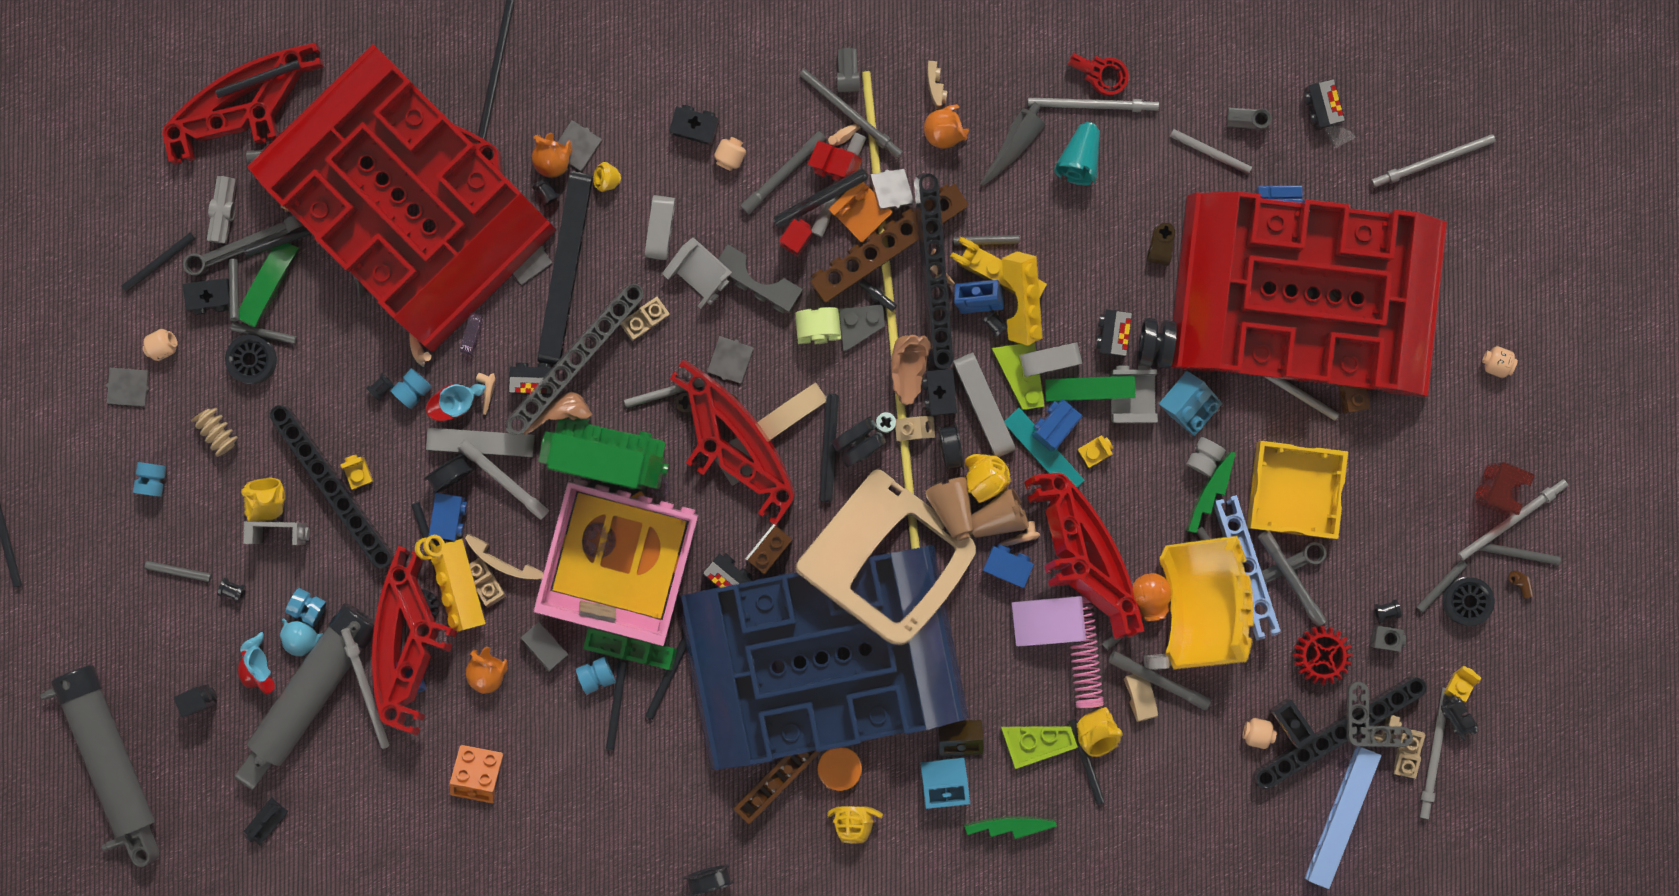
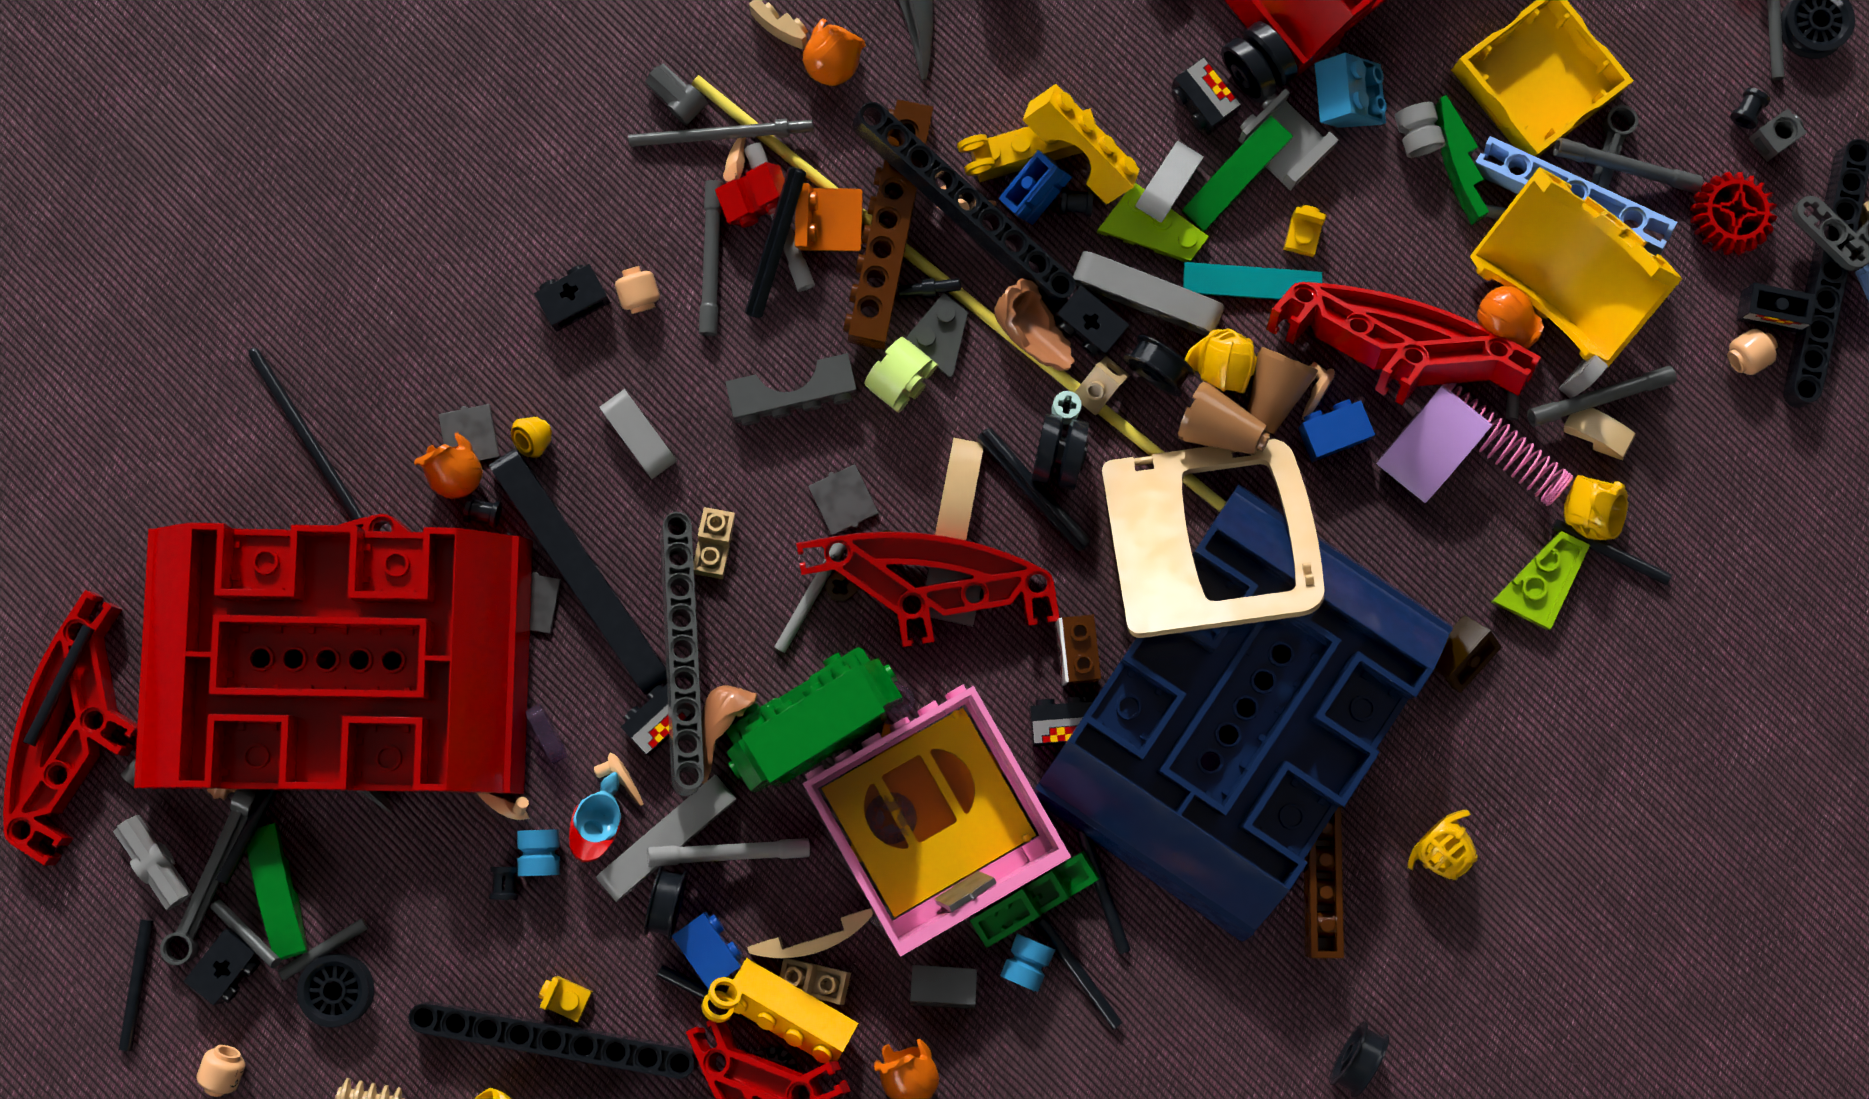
camera: 45 degrees left, 5 degrees down
(700, 270) = (723, 437): light grey panel -> none
(796, 237) = (789, 306): red brick -> none
(839, 768) = (1375, 808): orange tile -> none
(891, 189) = (838, 168): piece -> none
(945, 783) = (1496, 715): dark azure slope -> none
(989, 240) = (988, 124): dark grey bar -> none
(1019, 825) = (1611, 685): green slope -> none
(1056, 424) = (1240, 241): blue brick -> none

